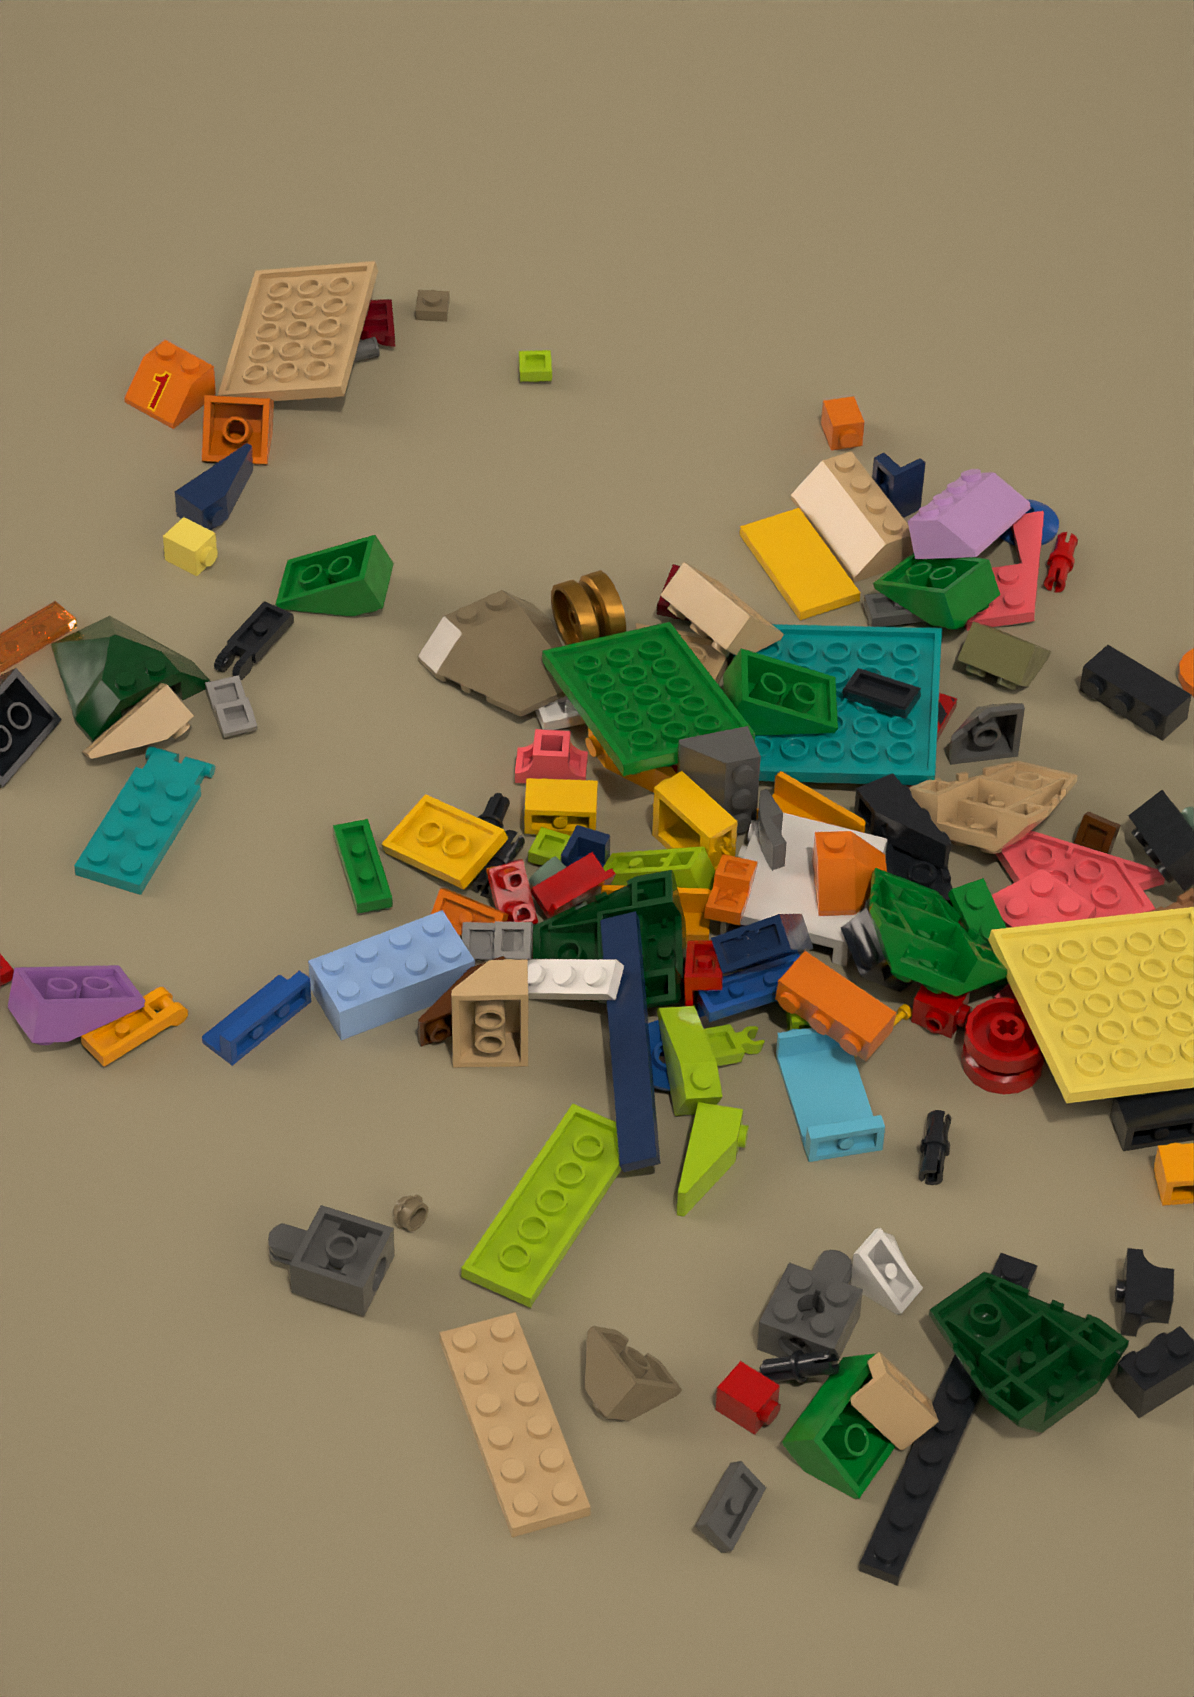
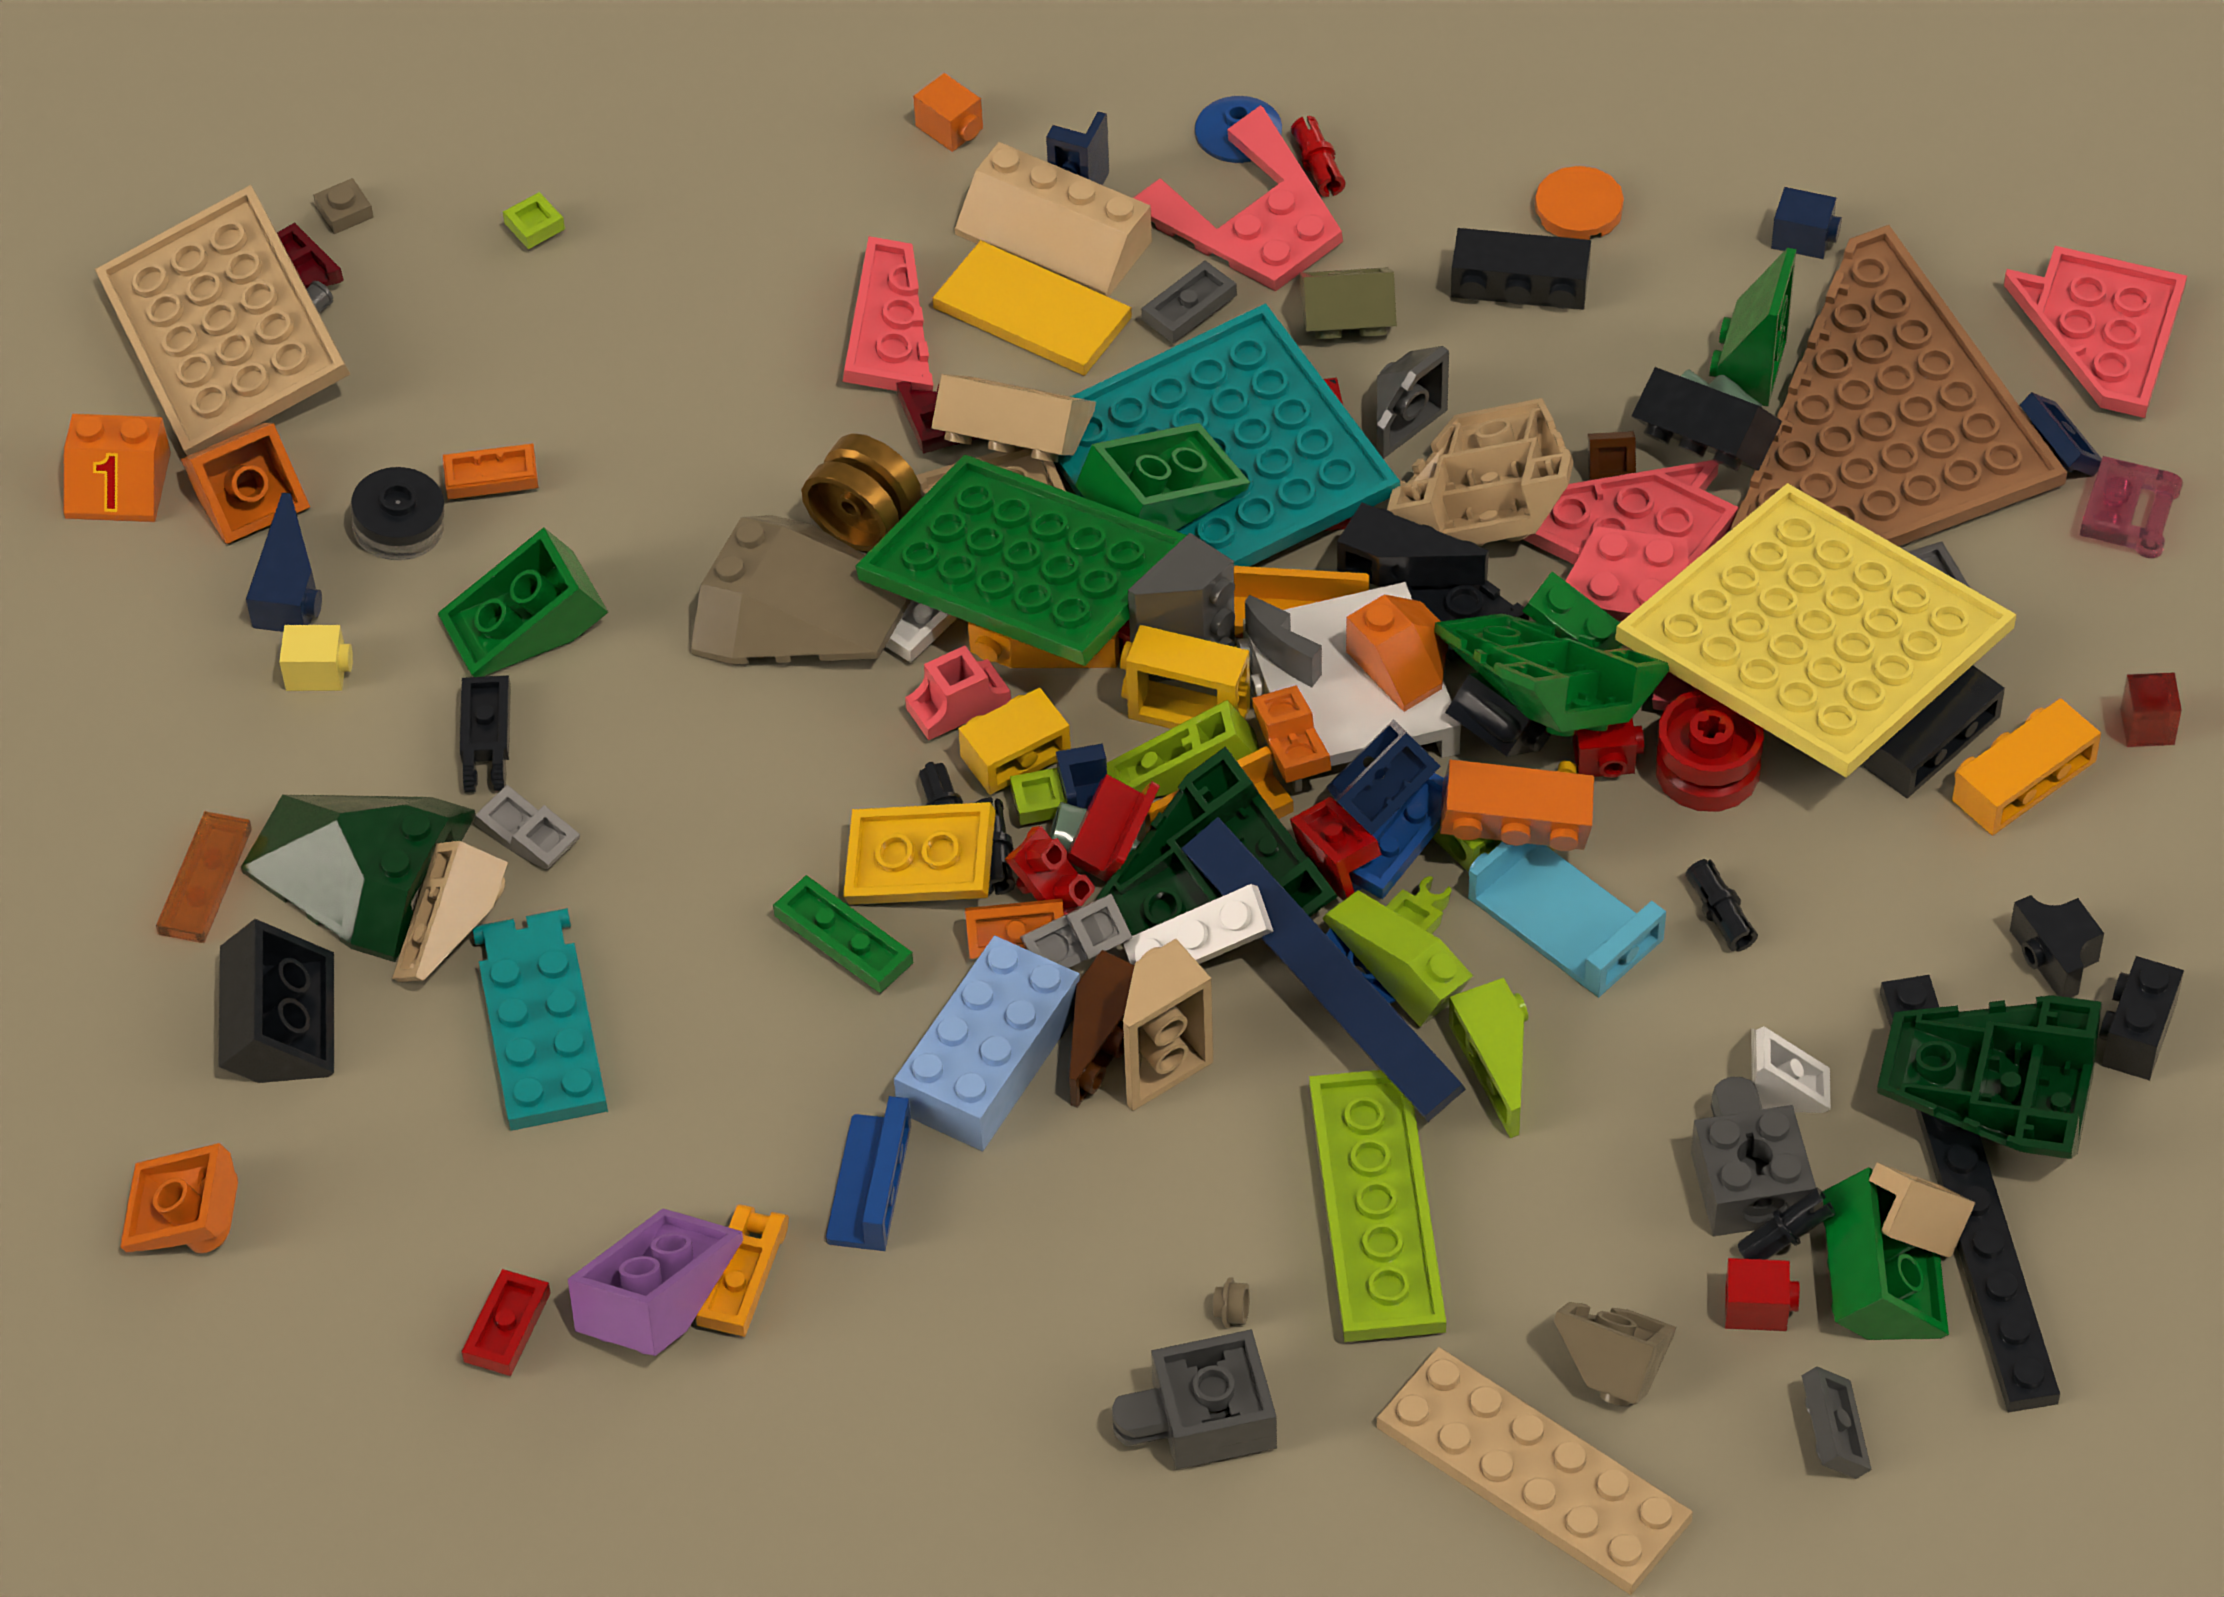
camera: 30 degrees left, 5 degrees up
(309, 490) = (397, 513): none -> black piece
(386, 494) = (490, 471): none -> orange plate
(700, 525) = (888, 321): none -> coral wing
(881, 693) = (1264, 415): black tile -> none
(941, 589) = (1225, 254): green slope -> none
(966, 516) = (1195, 156): lavender slope -> none

